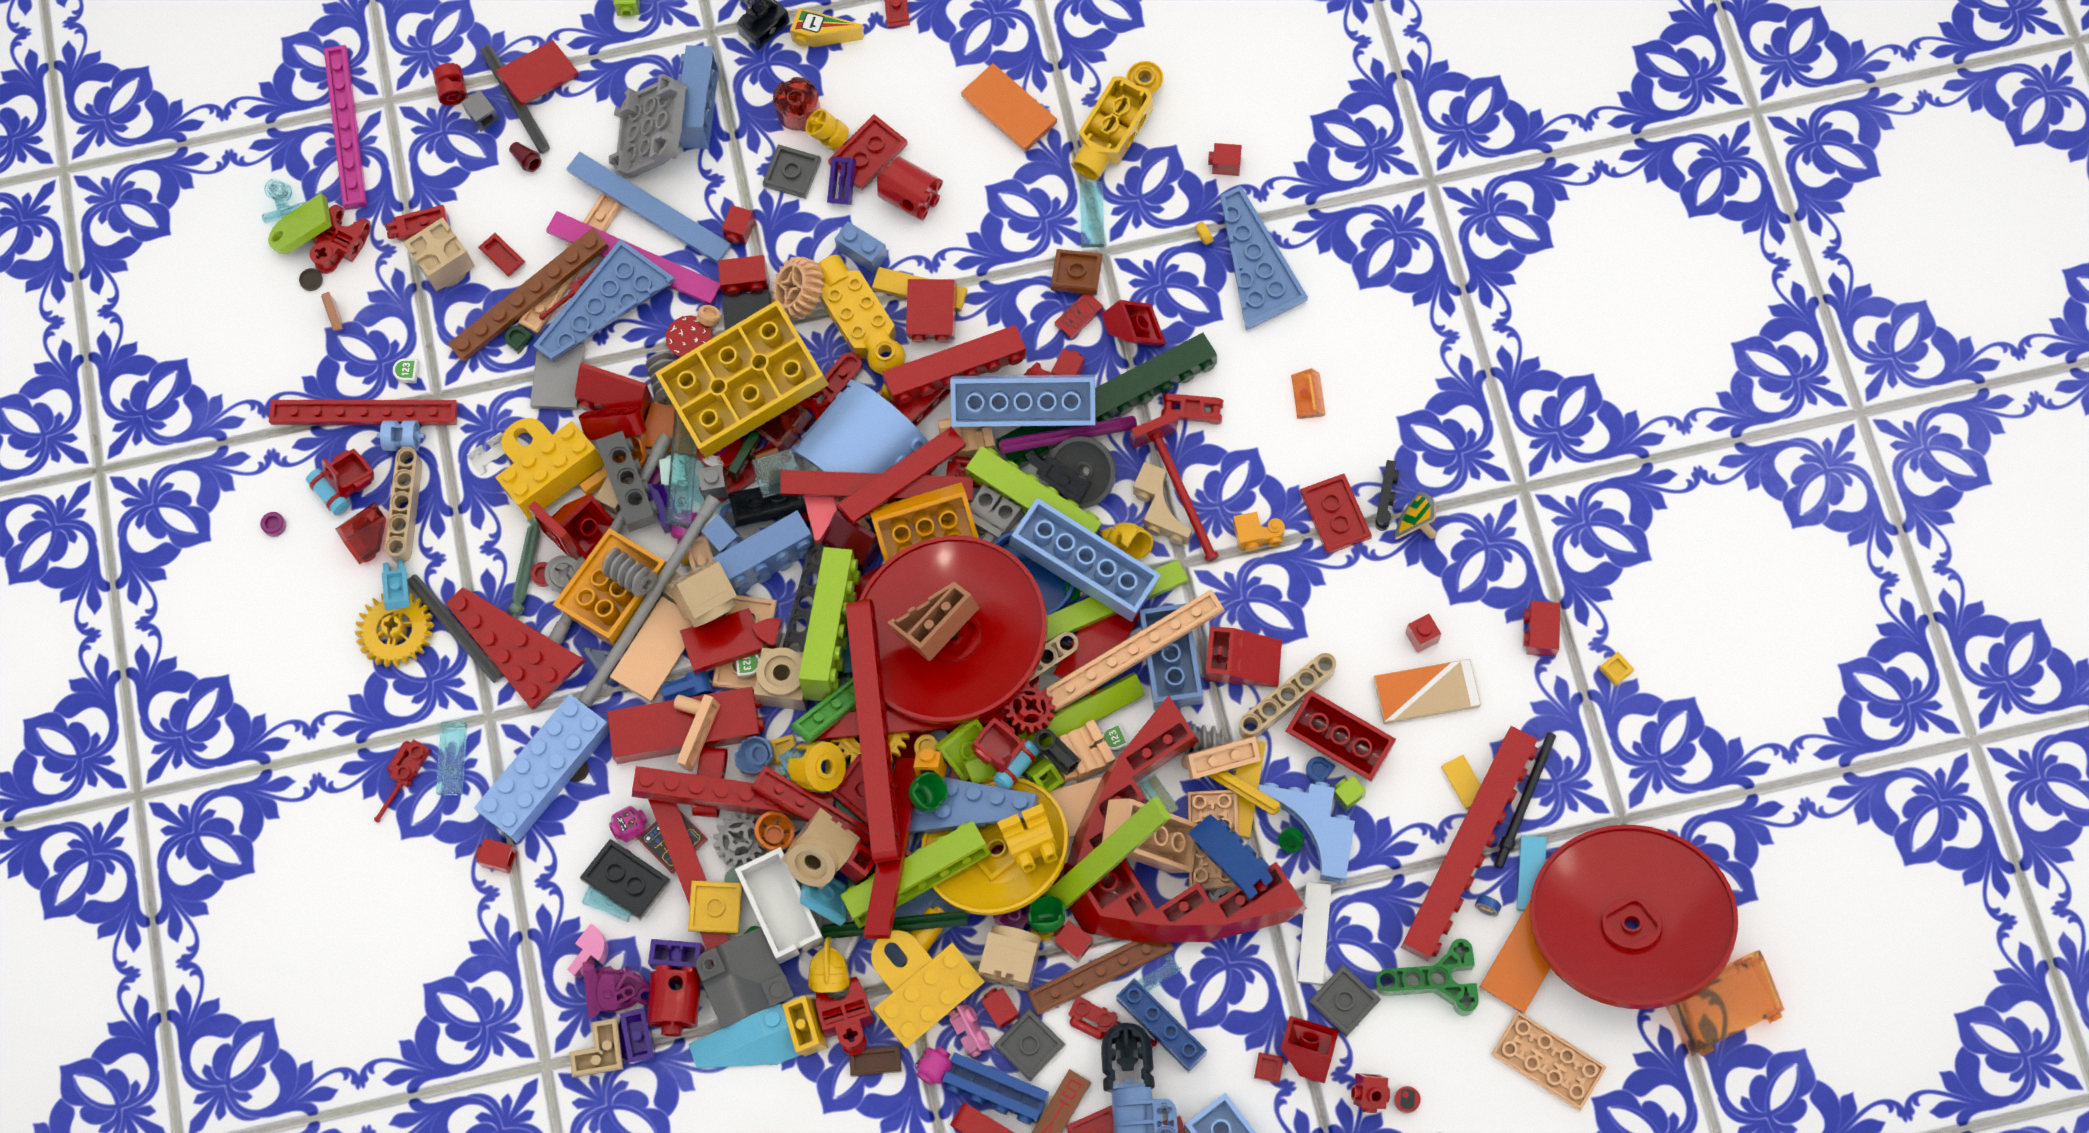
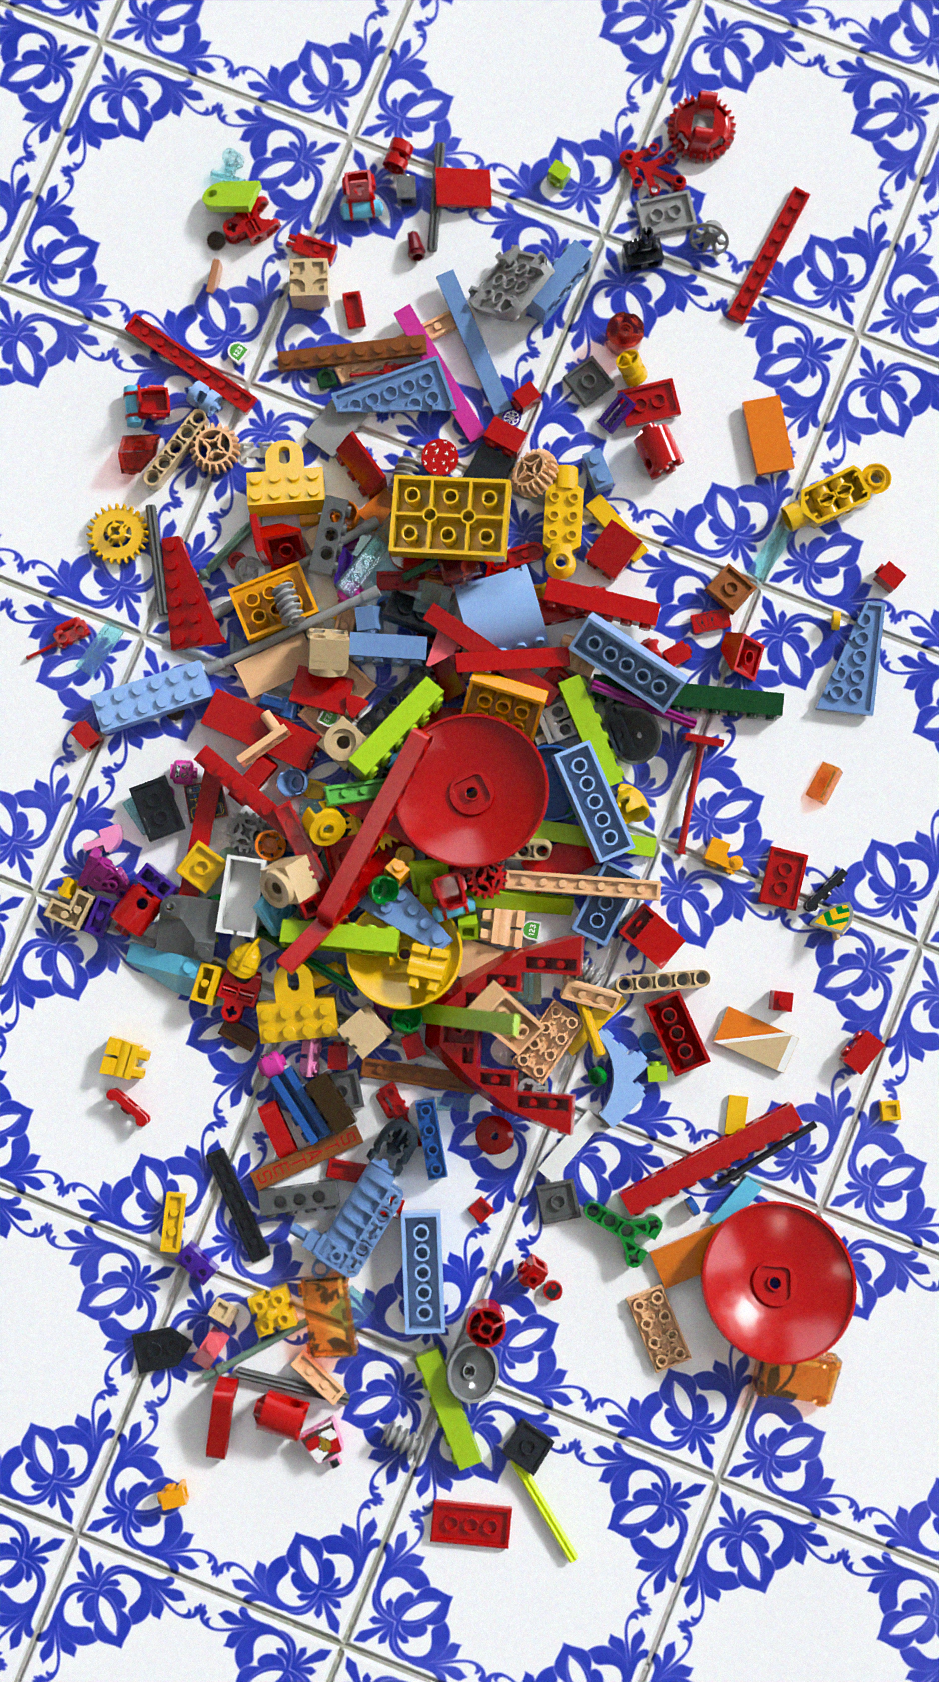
camera: 30 degrees right, 15 degrees up
(273, 524) = (84, 404): magenta tile -> none
(345, 127) = (308, 139): dark pink tile -> none
(395, 586) = (134, 506): medium azure hinge -> none
(436, 144) = (360, 198): none -> red piece
(462, 479) = (203, 439): none -> light nougat gear
(582, 1029) = (68, 887): none -> yellow tile
(605, 422) = (348, 487): red beam -> none
(708, 315) = (463, 451): light nougat tile -> none
(713, 482) = (386, 576): flat silver brick -> none
(736, 251) = (512, 417): none -> dark purple tile
(820, 30) = (679, 289): yellow slope -> none
(936, 620) = (463, 782): nougat wedge -> none
(1025, 1060) = (330, 1103): none -> dark brown brick
(1057, 752) = (486, 920): black piece -> none
(1159, 519) = (664, 802): tan arch -> none
(1193, 407) = (739, 740): red plate -> none
(1226, 991) = (487, 1127): none -> red dish
(1229, 854) = (547, 1068): blue brick -> none
(1309, 1048) = (514, 1217): red slope -> none

